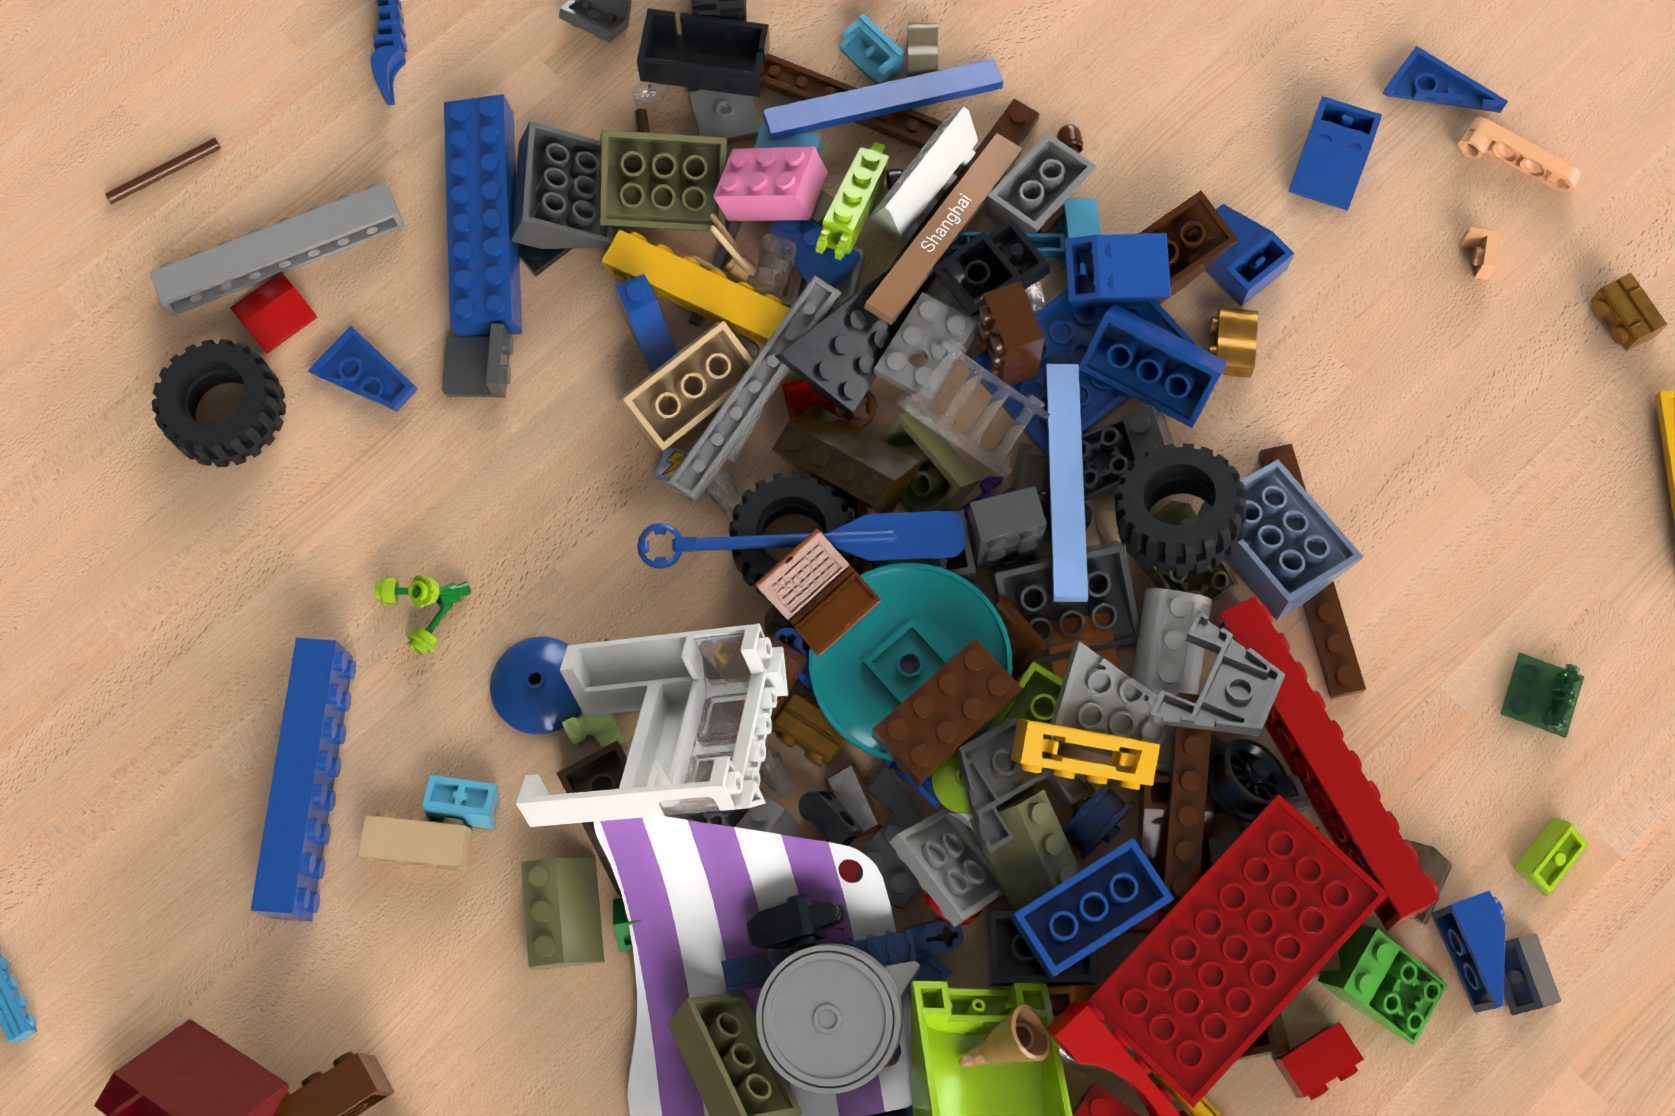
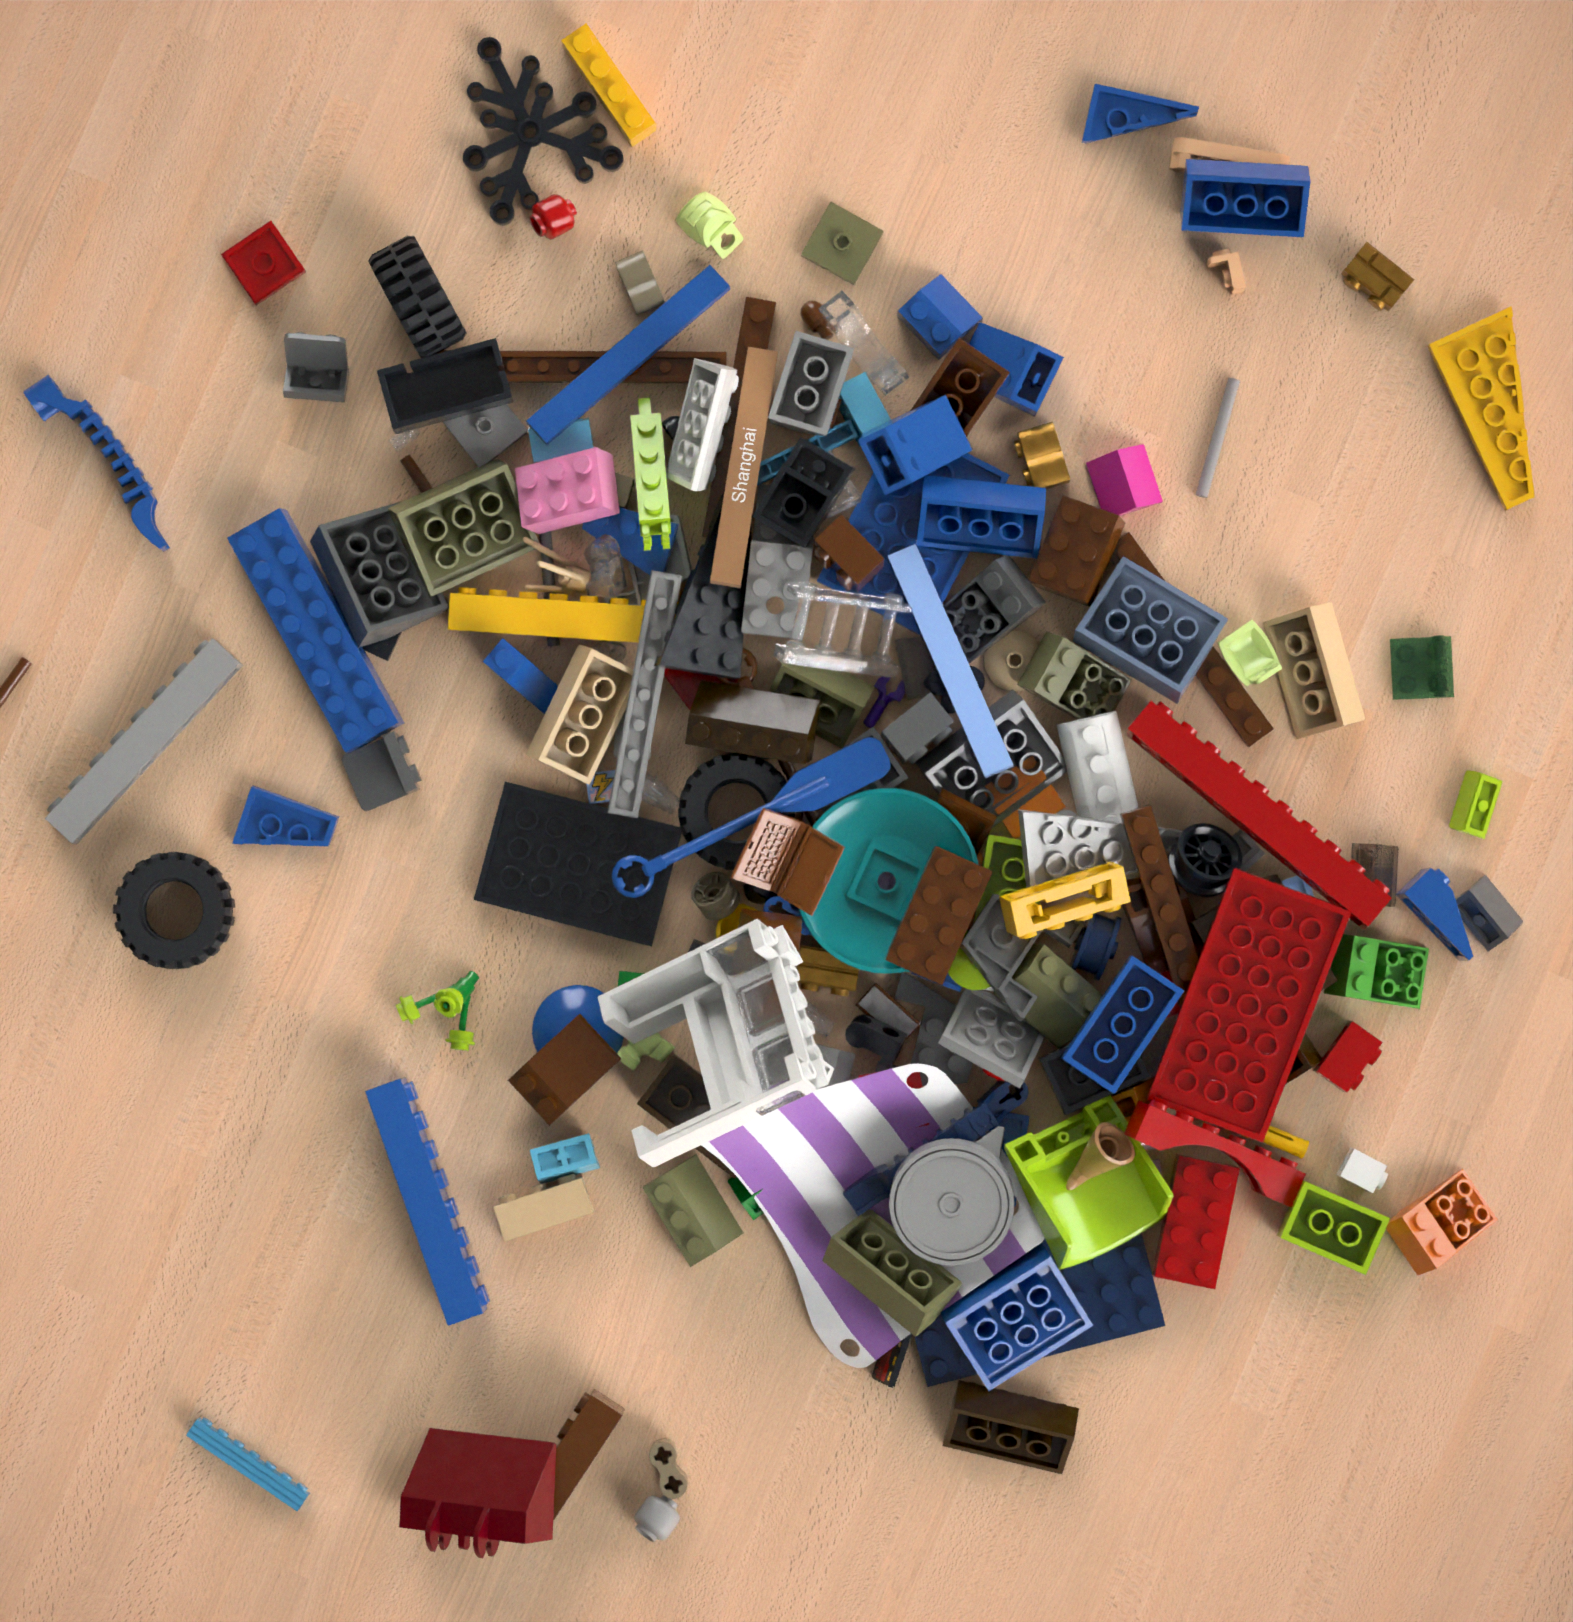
camera: 25 degrees left, 15 degrees up
(273, 312) = (168, 800): red slope -> none
(503, 710) = (564, 1069): none -> reddish brown slope
(589, 516) = (558, 861): none -> black plate
(734, 607) = (715, 896): none -> dark tan wheel
(794, 923) = (892, 1138): black hinge -> none
(872, 50) = (593, 305): medium azure hinge -> none
(1007, 19) = (706, 220): none -> yellowish green piece
(1106, 183) = (869, 353): none -> clear arch
(1122, 91) = (842, 243): none -> olive plate
(1180, 174) = (938, 316): none -> blue slope
(1180, 472) = (1035, 623): black tyre -> none
(1236, 691) = (1167, 796): wing -> none
(1241, 427) = (1077, 551): none -> reddish brown brick
(1304, 397) = (1124, 480): none -> dark pink slope
(1335, 153) = (1061, 231): blue slope -> none
(1369, 604) = (1250, 654): none -> yellowish green piece
(1412, 396) = (1217, 437): none -> light grey piece
(1429, 649) = (1314, 670): none -> tan slope
(1526, 188) = (1245, 198): none -> blue brick

